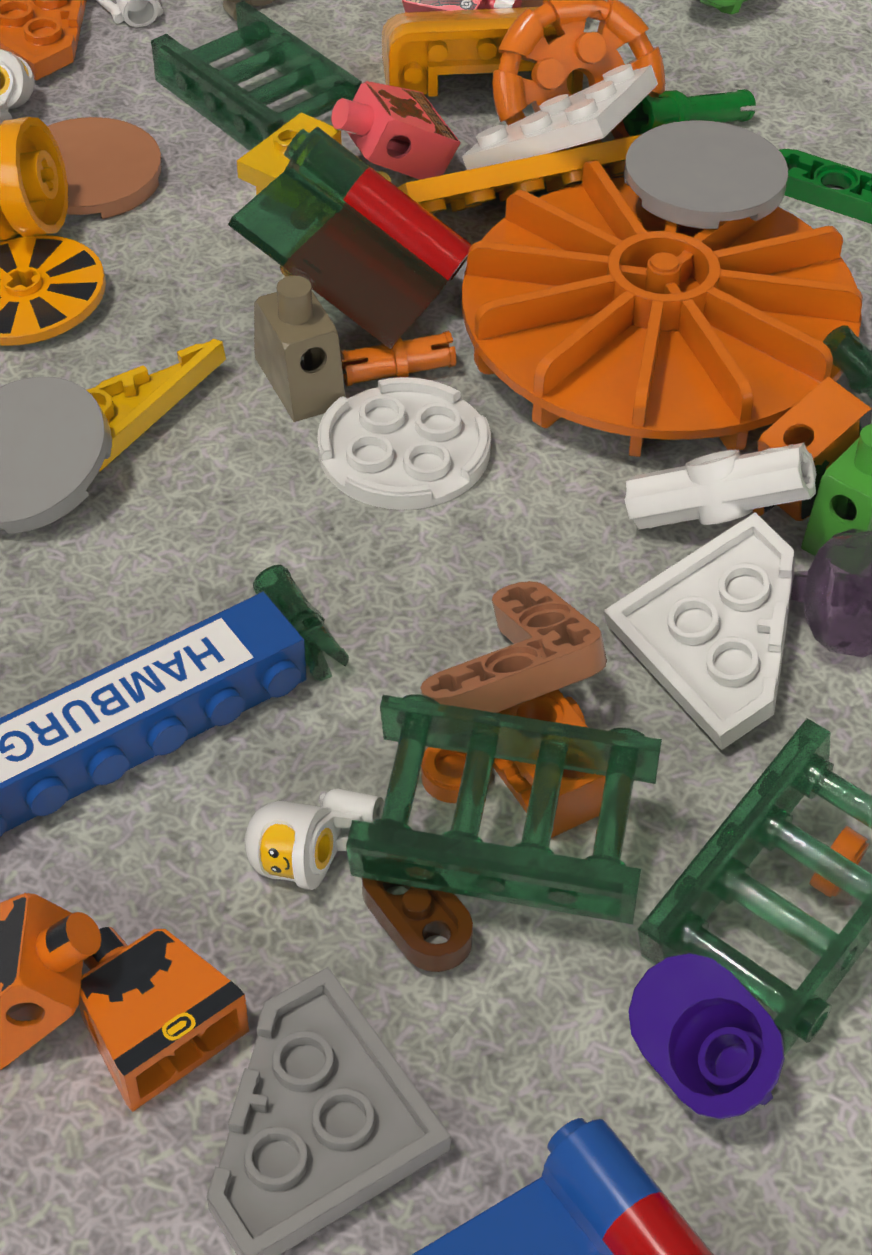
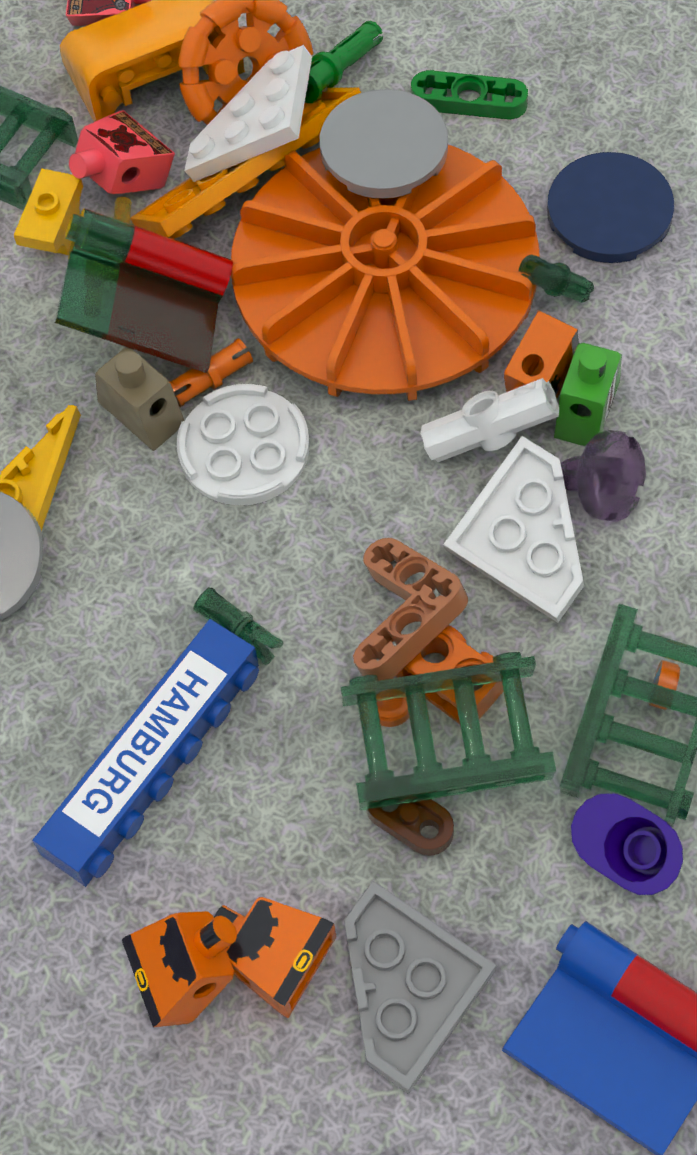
camera: 15 degrees left, 15 degrees up
(302, 839) = (314, 795): white piece -> none

